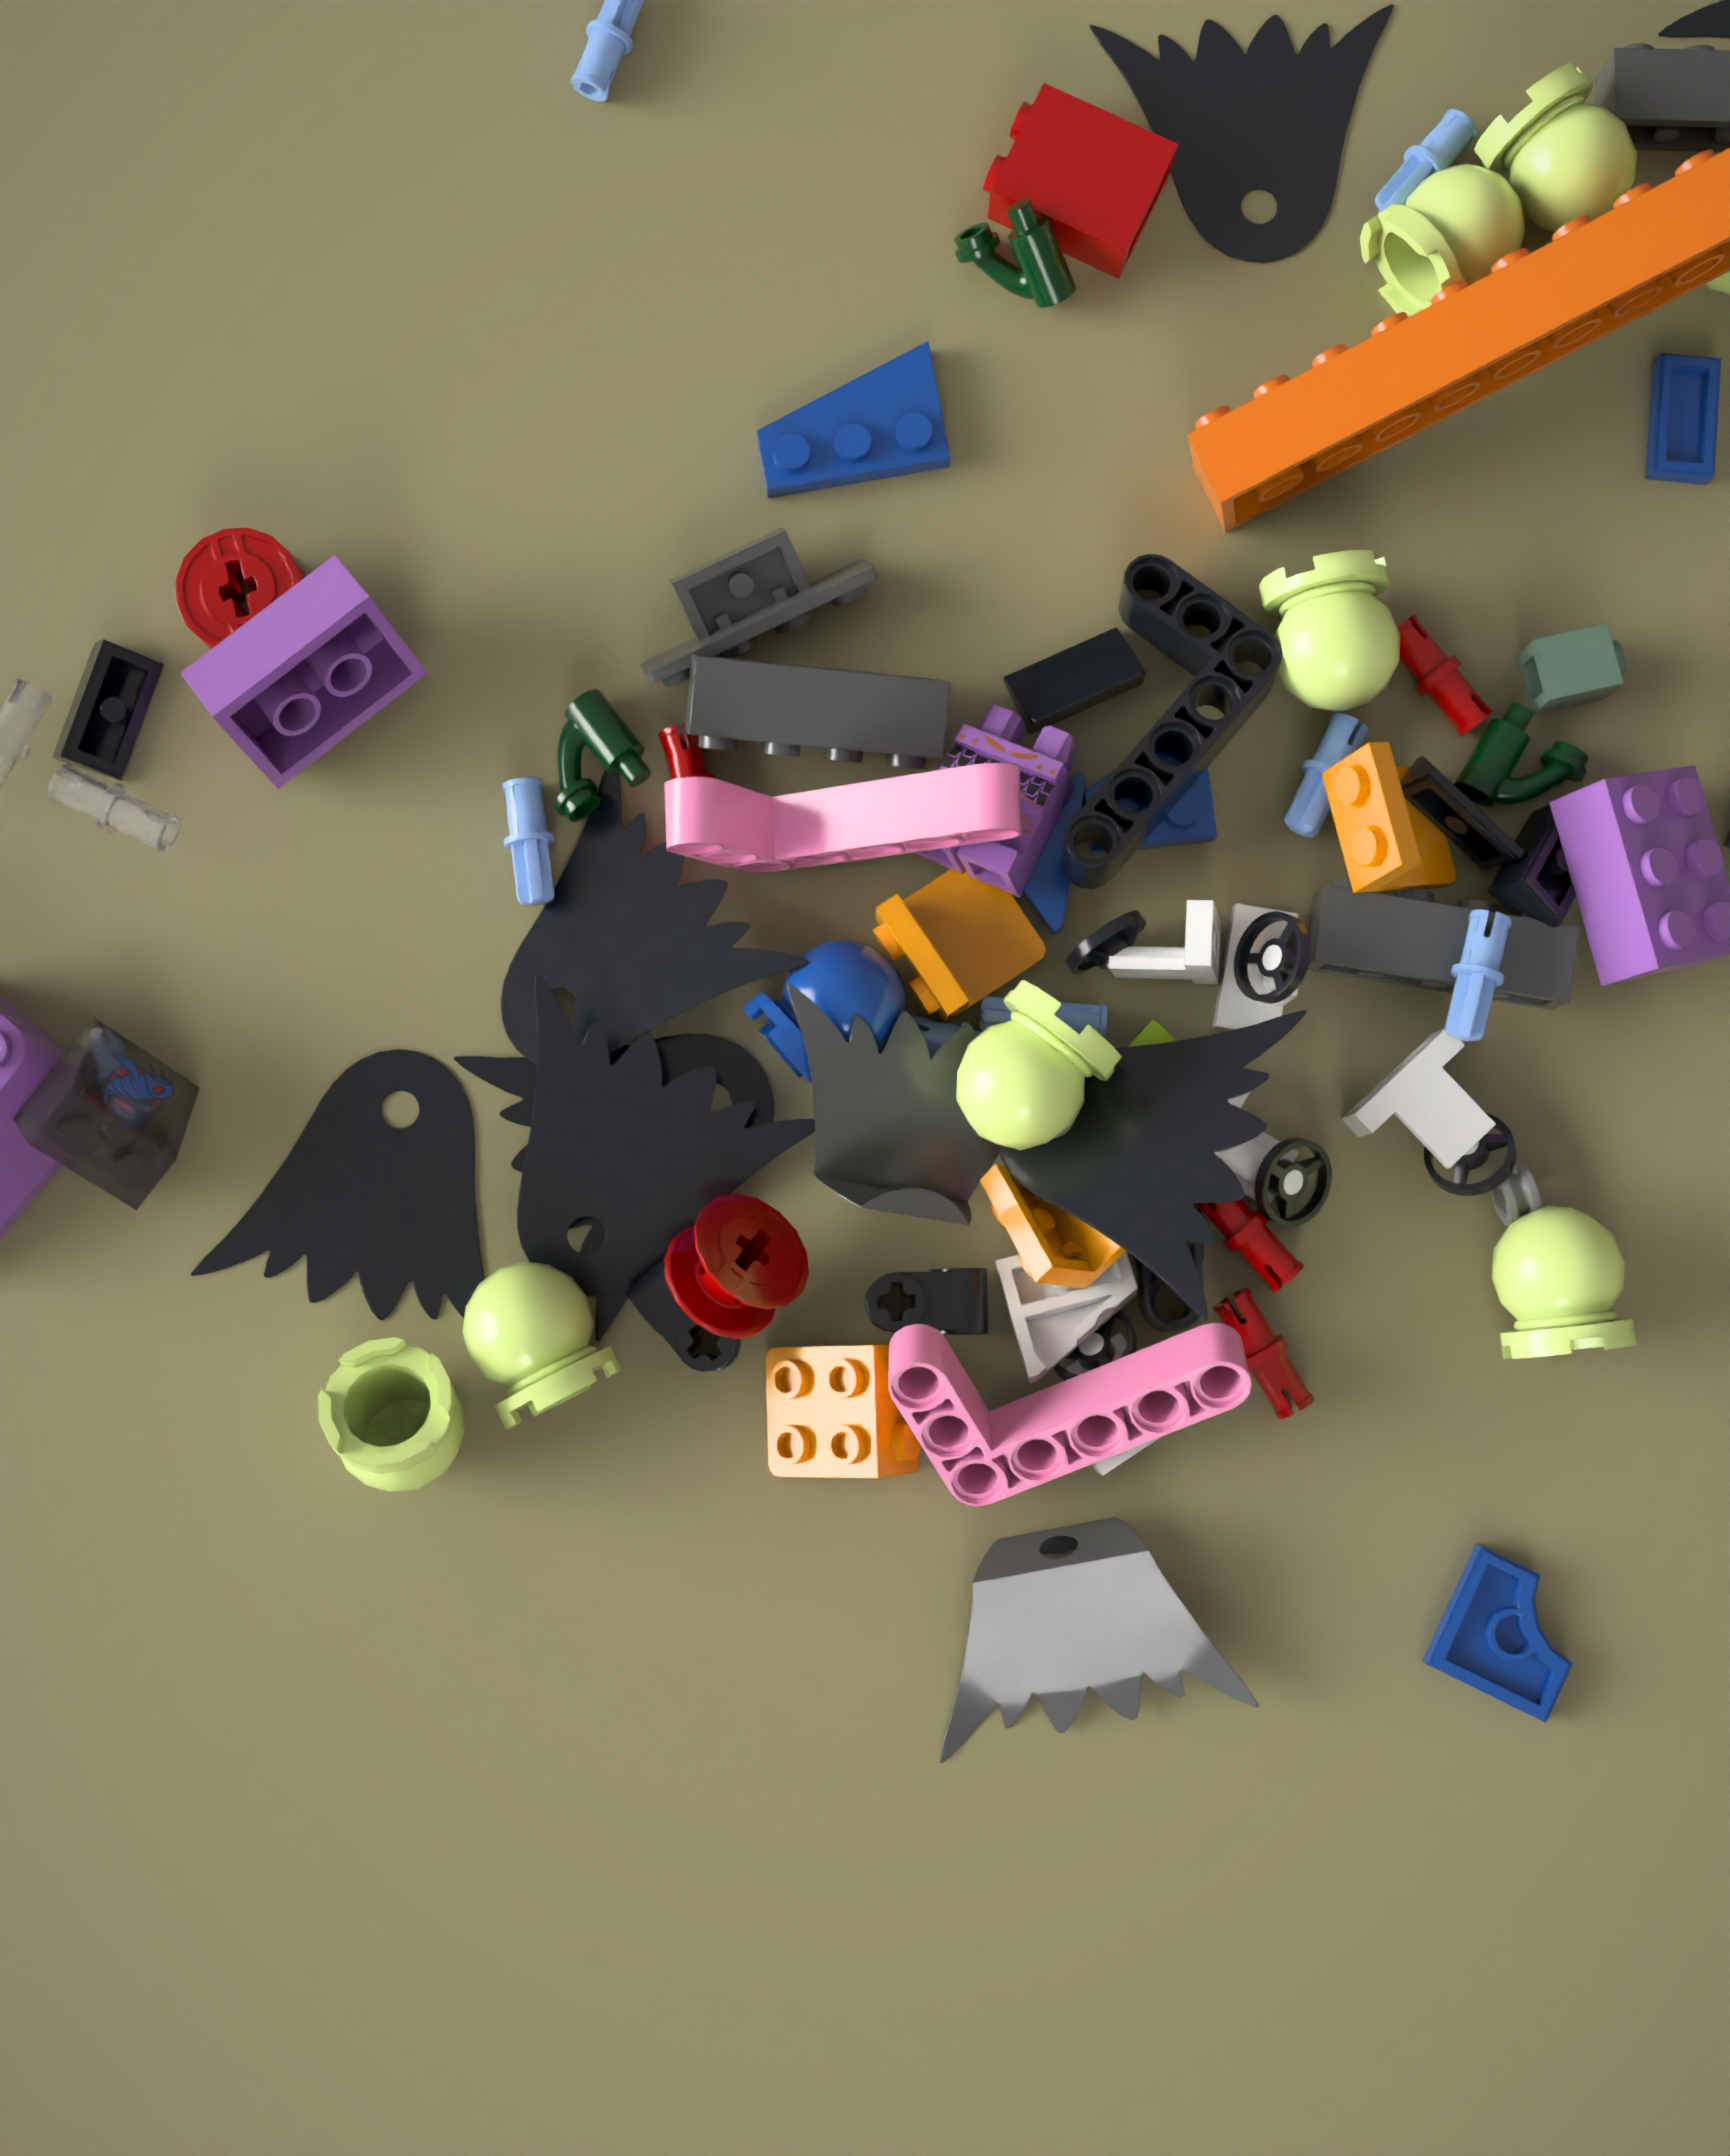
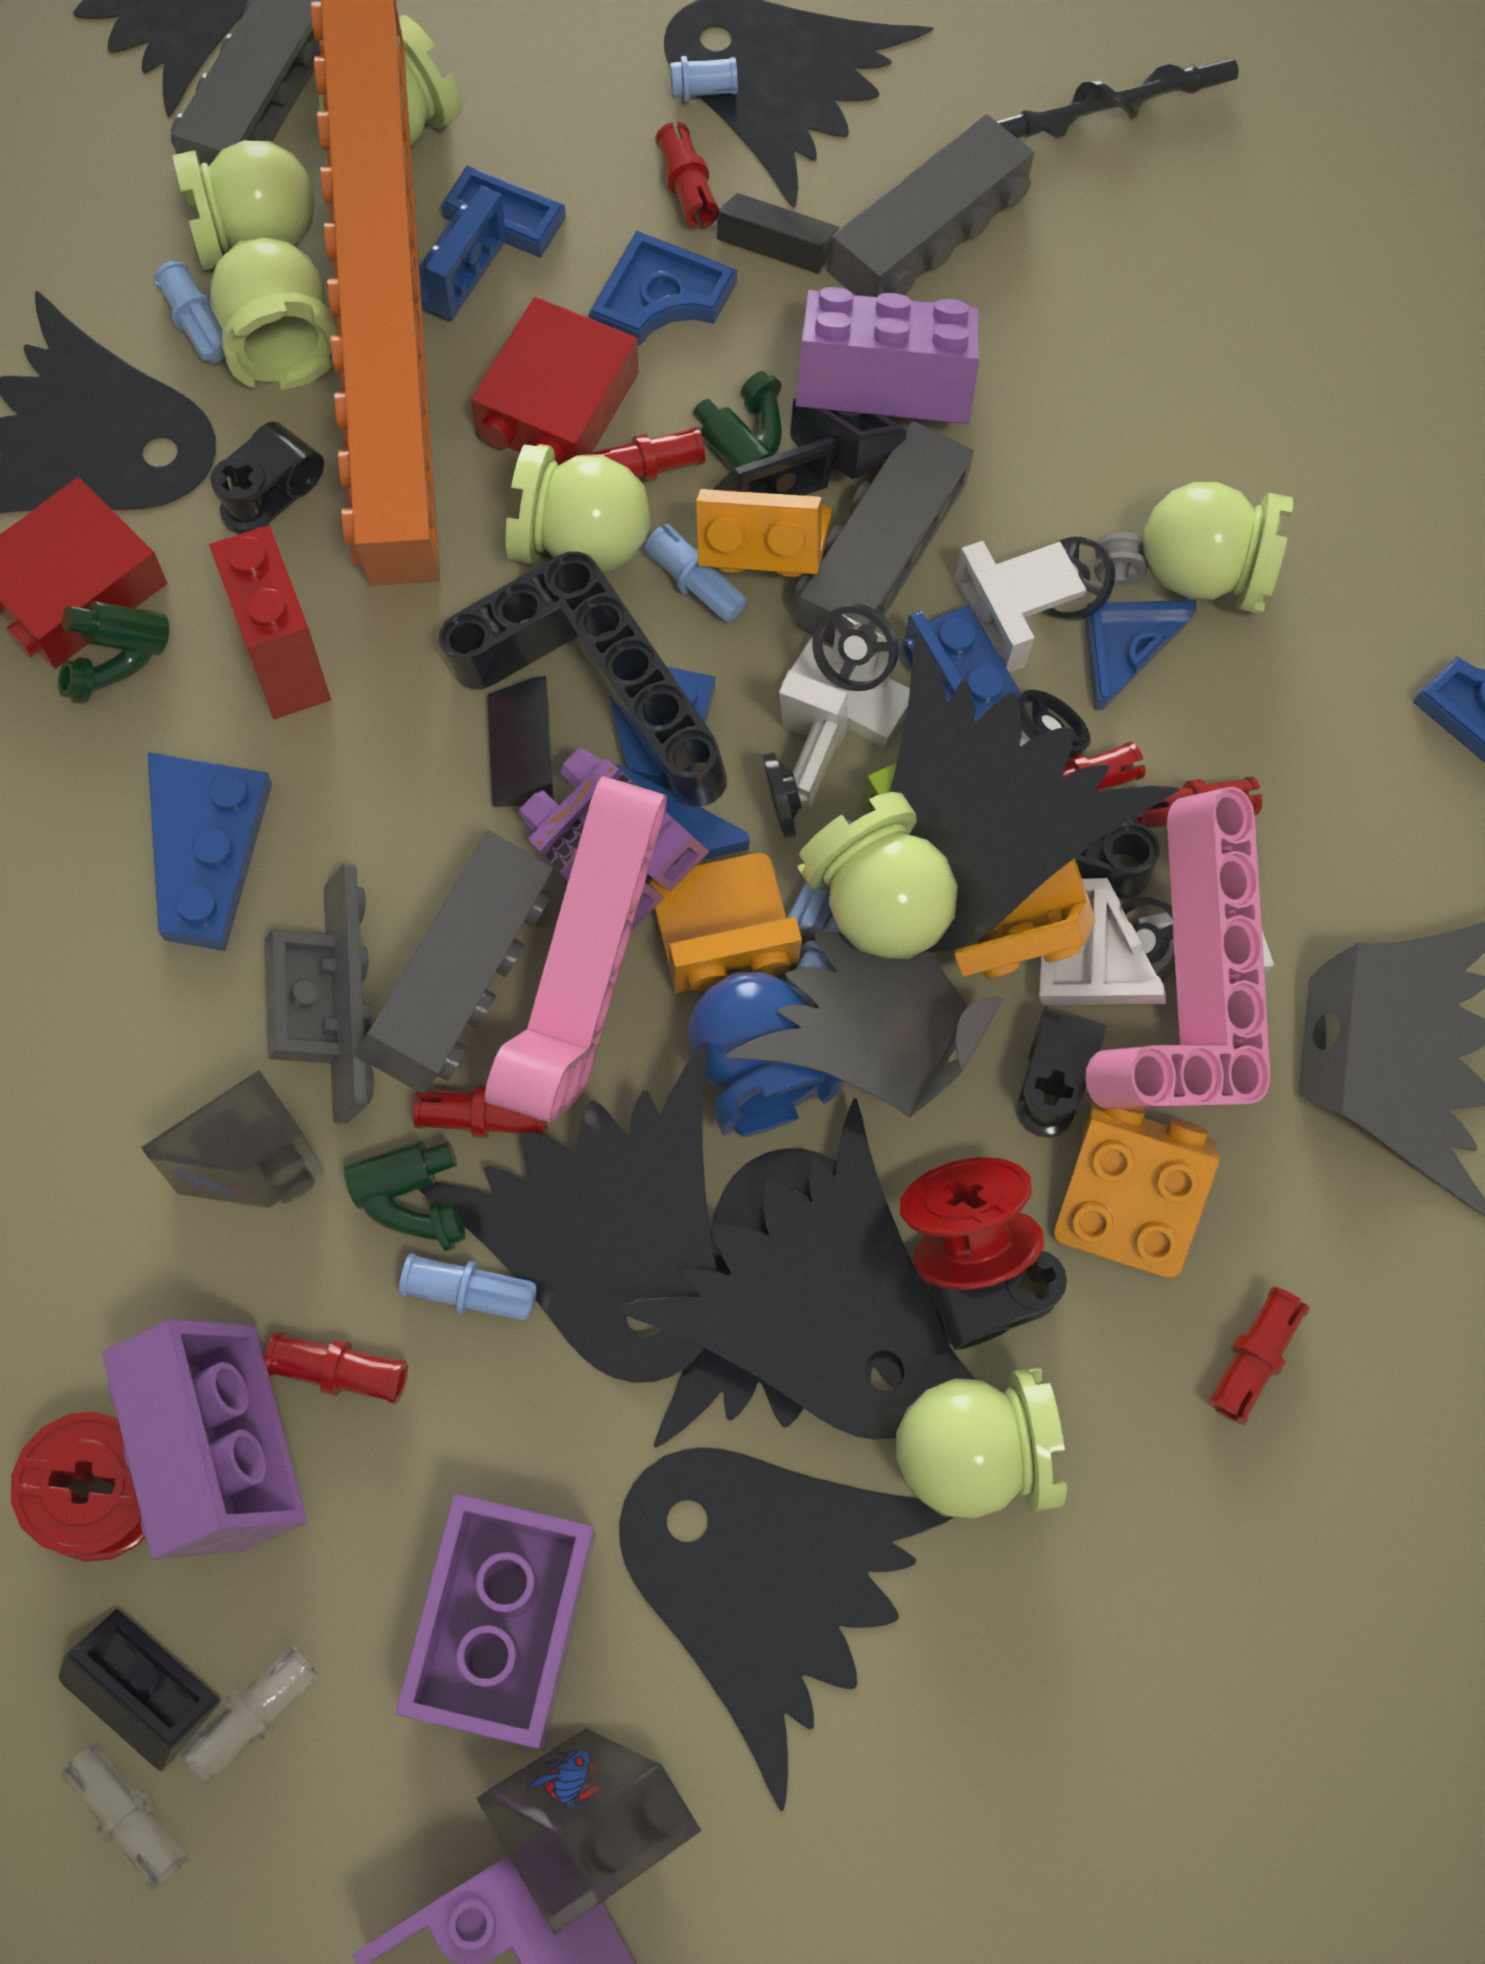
camera: 75 degrees left, 15 degrees down
(245, 979) = (497, 1622): none -> medium lavender brick
(392, 1415) = (1016, 1611): yellowish green tile -> none
(418, 757) = (336, 1367): none -> red pin
(572, 594) = (238, 1149): none -> clear smoke slope
(720, 1570) = (1258, 1355): none -> red pin
(1088, 391) = (271, 621): none -> red brick
(1270, 317) = (267, 469): none -> black piece
(1325, 1074) = (961, 653): none -> blue bracket
(1428, 1229) = (1126, 638): none -> blue tile
(1477, 976) = (929, 502): light blue axle -> none
(1482, 554) = (555, 382): none -> red brick
(1571, 668) = (682, 358): sand green brick -> none
(1598, 397) = (462, 253): none -> blue bracket
(1657, 613) = (661, 286): none -> blue tile

